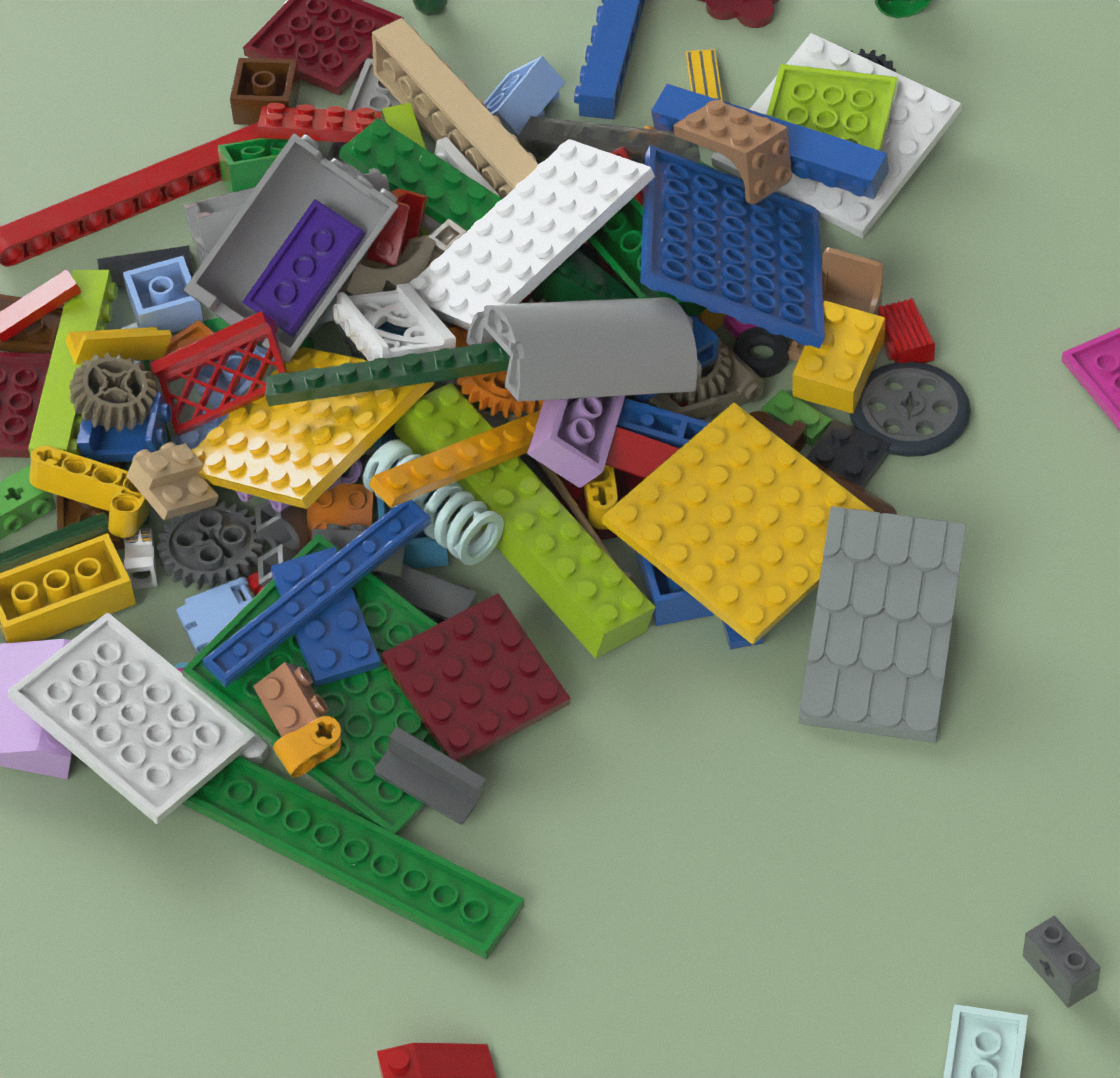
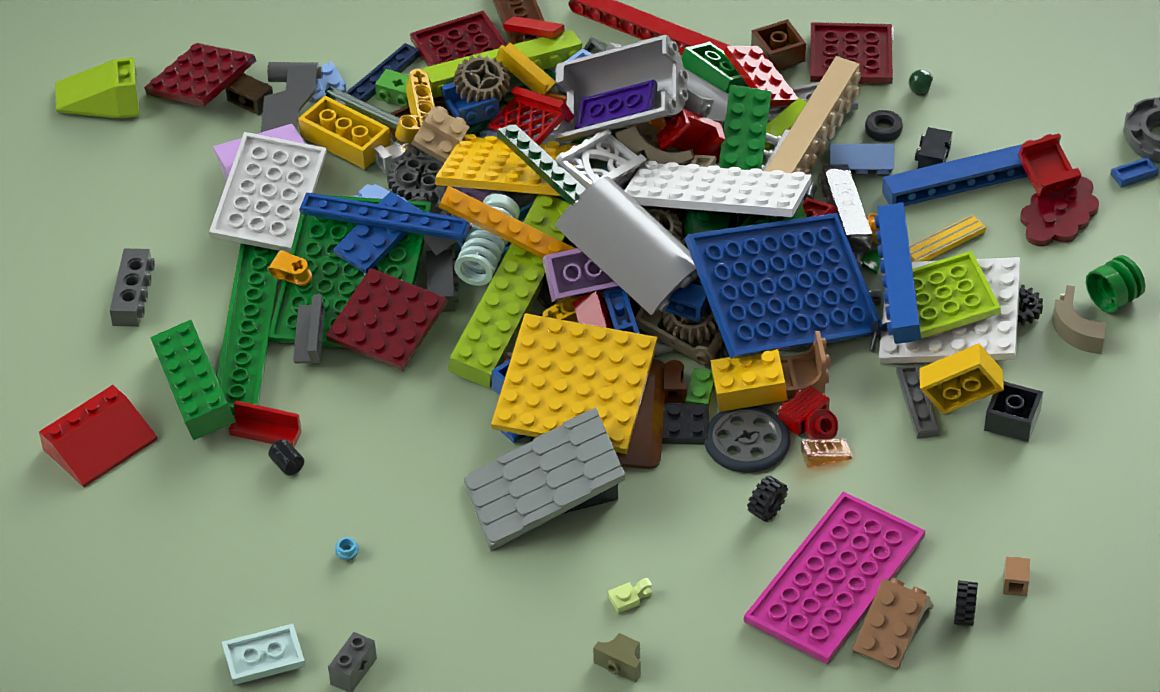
camera: 60 degrees right, 5 degrees down
(210, 996) = (131, 287): none -> dark grey brick
(290, 698) = (316, 246): nougat bracket -> none
(428, 950) = (192, 380): none -> green brick
(474, 50) = (883, 116): none -> black tyre
(555, 37) = (934, 147): none -> black brick
(559, 903) = (265, 424): none -> red panel
(640, 898) = (286, 457): none -> black piece
(749, 141) = (867, 256): medium nougat bracket -> none
(820, 210) = (877, 330): none -> black hand
(848, 887) = (346, 548): none -> medium azure plate
(926, 47) = (1073, 328): none -> dark tan arch
(945, 327) = (821, 424): none -> red plate
(950, 230) = (917, 402): none -> dark grey tile
(976, 360) = (813, 456): none -> clear orange slope
(977, 162) = (961, 379): none -> yellow brick
(1035, 149) = (1014, 411): none -> black brick
(1039, 423) = (767, 498): none -> black tyre
(1101, 631) = (627, 597): none -> yellowish green plate

